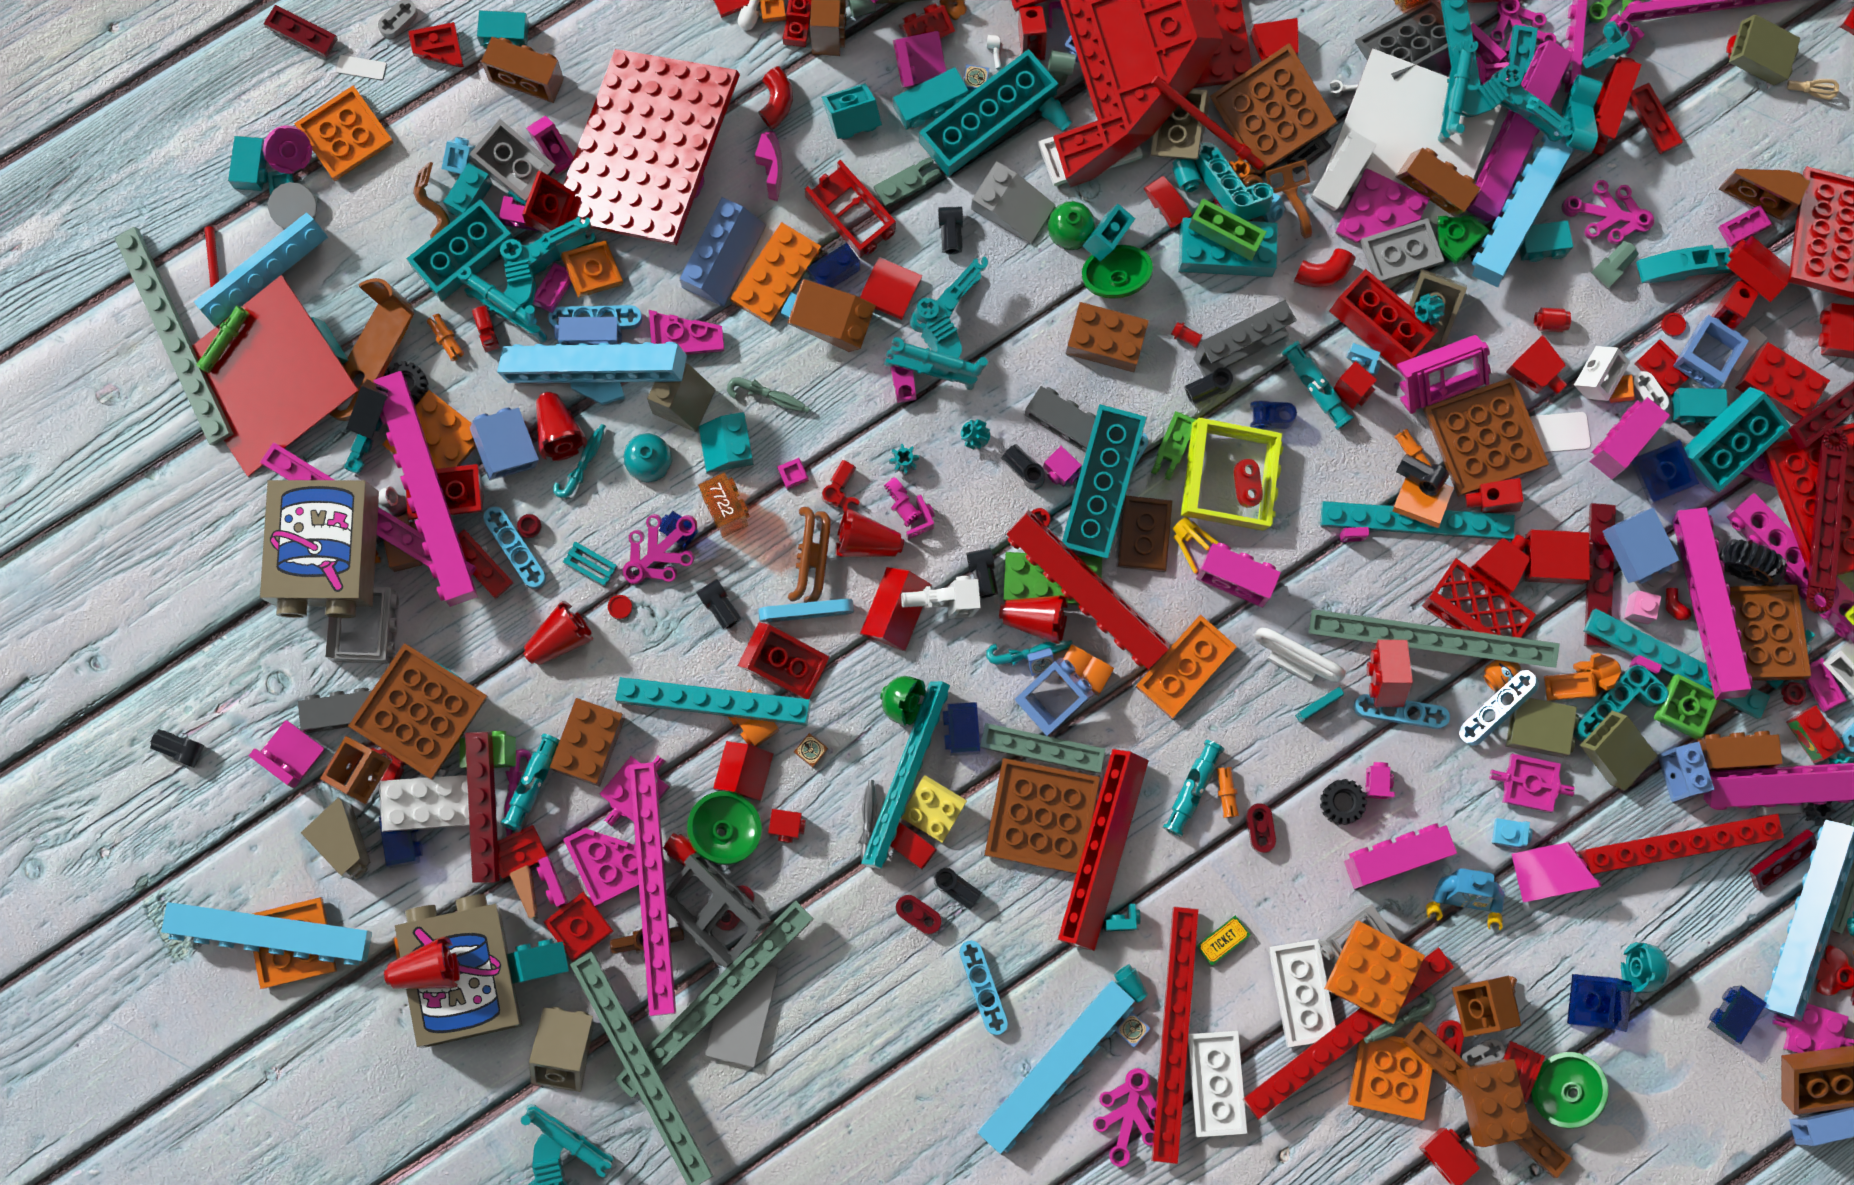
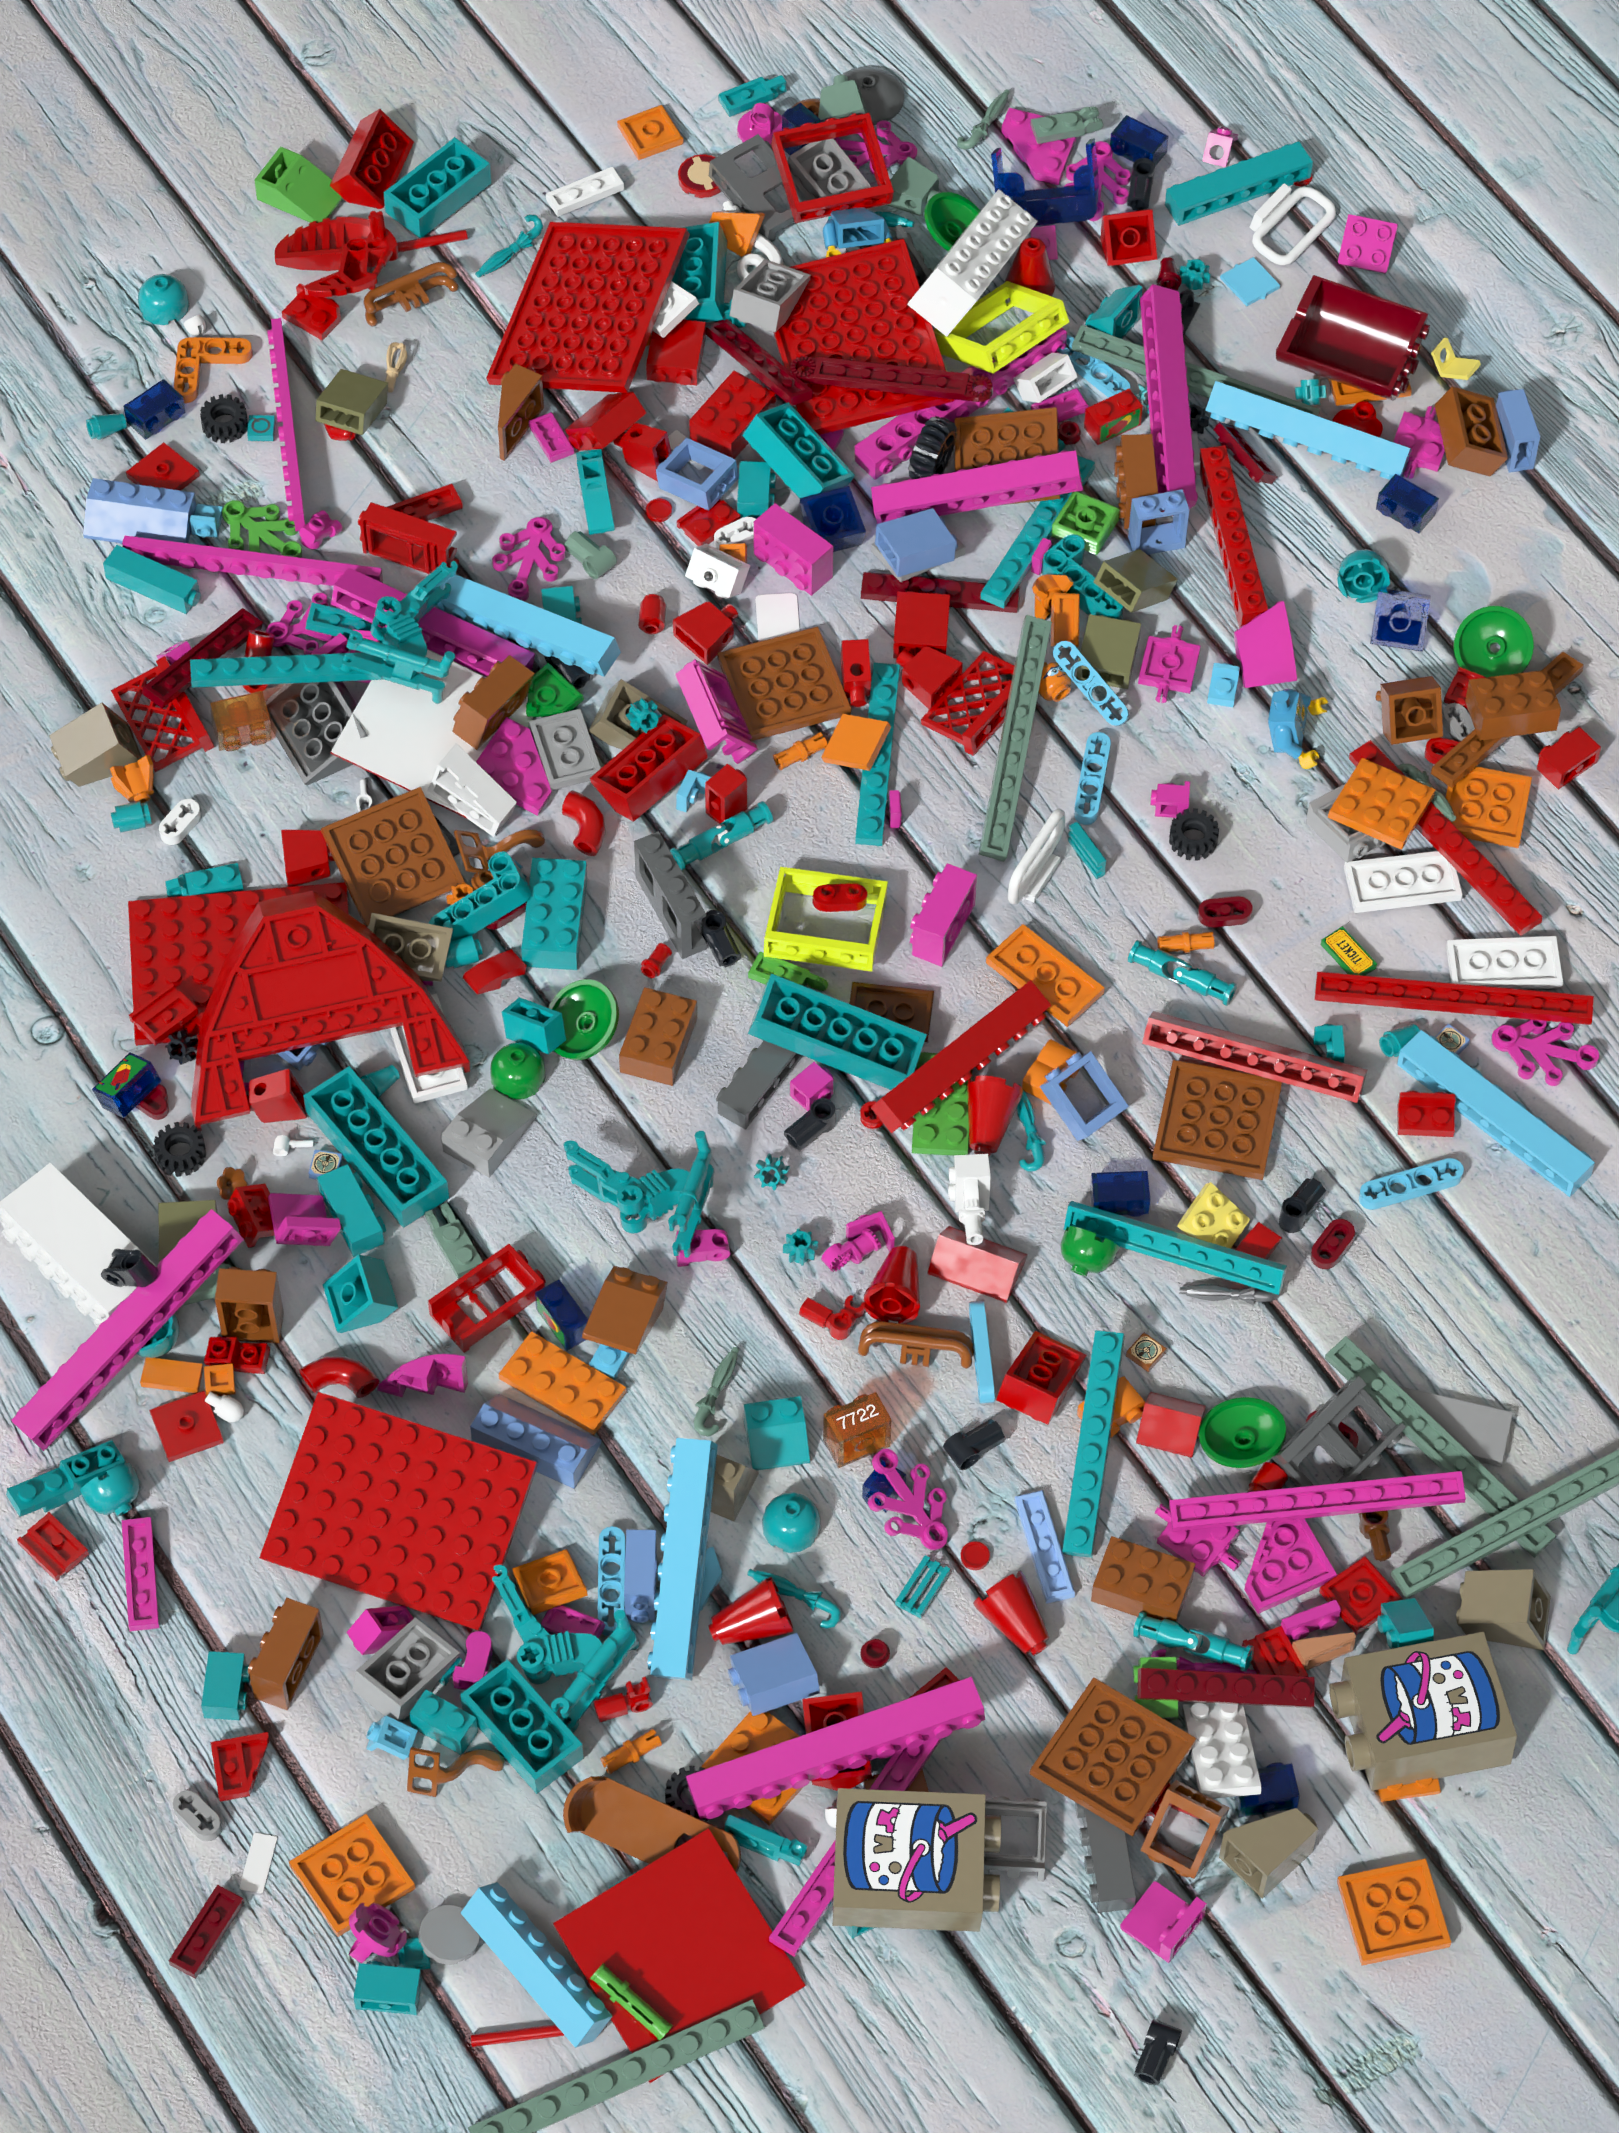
camera: 85 degrees left, 20 degrees down
(266, 932) = (1384, 1928): medium azure brick -> none
(367, 409) = (735, 1812): black hinge -> none
(425, 968) = (1428, 1715): red cone -> none
(516, 546) = (904, 1672): medium azure beam -> none
(547, 203) = (470, 1621): red slope -> none
(627, 663) = (1044, 1547): none -> light blue tile
(690, 335) = (639, 1484): dark pink wing -> none
(786, 825) = (1235, 1375): red brick -> none
(793, 473) = (813, 1367): dark pink tile -> none
(891, 288) = (587, 1258): red slope -> none
(951, 223) = (508, 1193): black piece -> none
(981, 566) = (928, 1171): black piece -> none
(1040, 661) = (1041, 1114): tile -> none
(1042, 748) = (1140, 1113): sand green plate -> none
(1052, 1004) = (1426, 1114): none -> red bracket
(1061, 66) = (325, 1061): sand green piece -> none
(1188, 530) = (889, 967): yellow plant -> none
(1227, 229) = (546, 895): bright green brick -> none
(1241, 150) = (441, 890): red bar -> none
(1267, 415) = (755, 882): clear blue piece -> none
(1390, 673) = (1056, 775): brick -> none
(1404, 855) = (1255, 780): dark pink brick -> none
(1429, 478) = (832, 732): black piece -> none
(1580, 113) = (407, 571): teal beam -> none
(1616, 45) = (343, 535): teal plate -> none
(1642, 607) = (978, 553): bright pink brick -> none
(1675, 607) = (975, 528): red arm -> none

